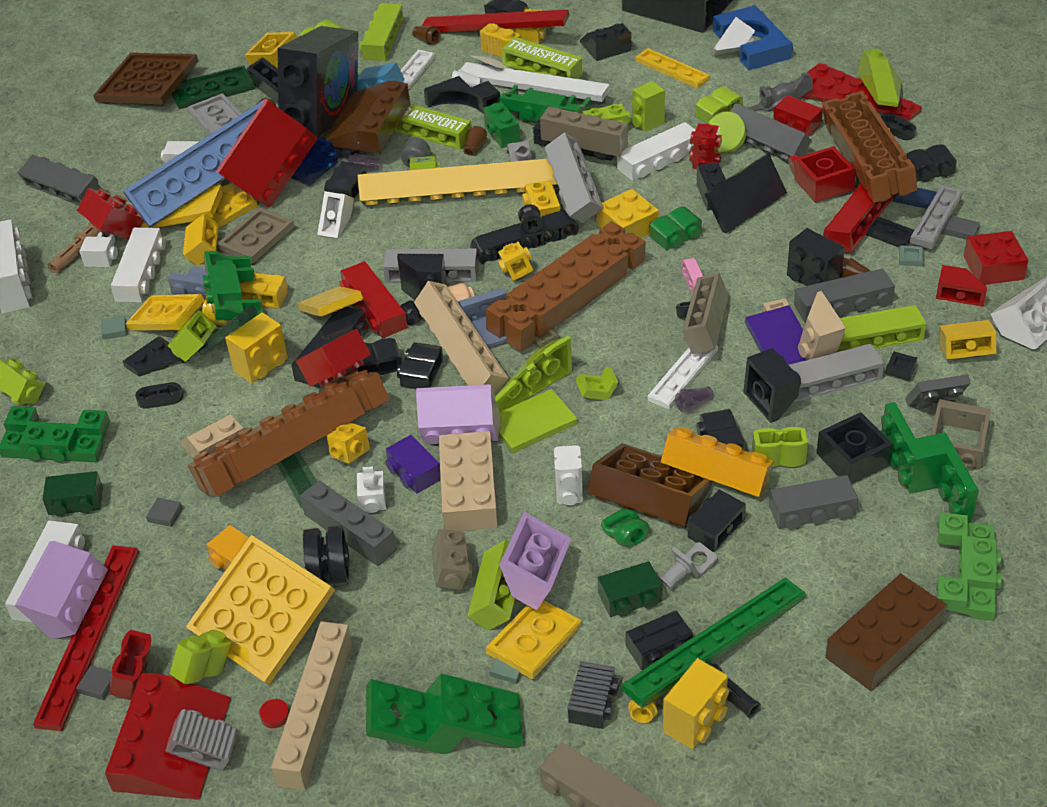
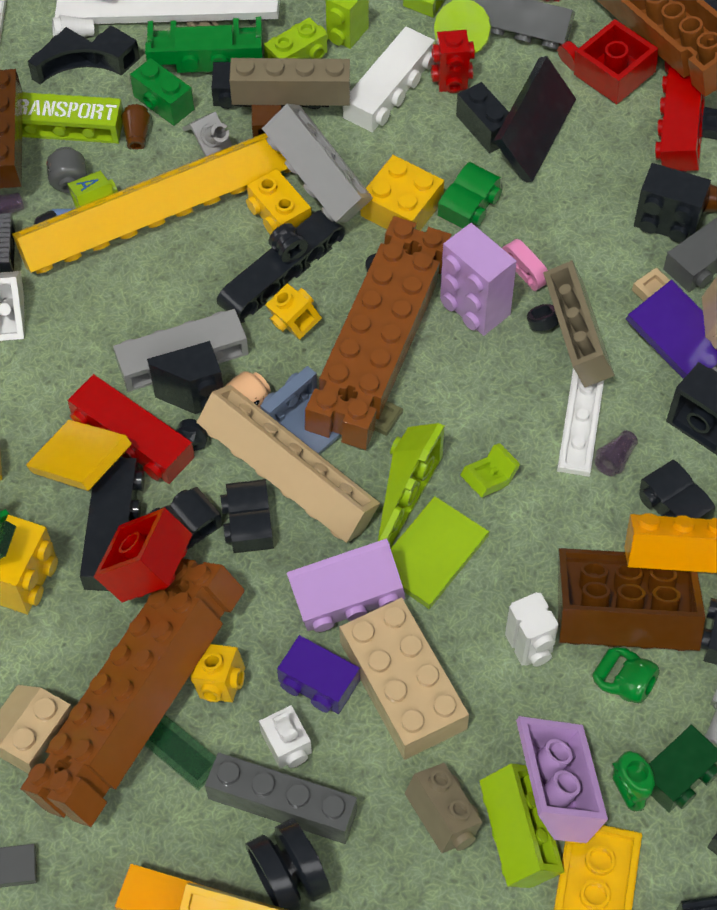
camera: 25 degrees left, 15 degrees up
(588, 579) = (633, 779): none -> green piece
(645, 267) = (477, 279): none -> lavender brick

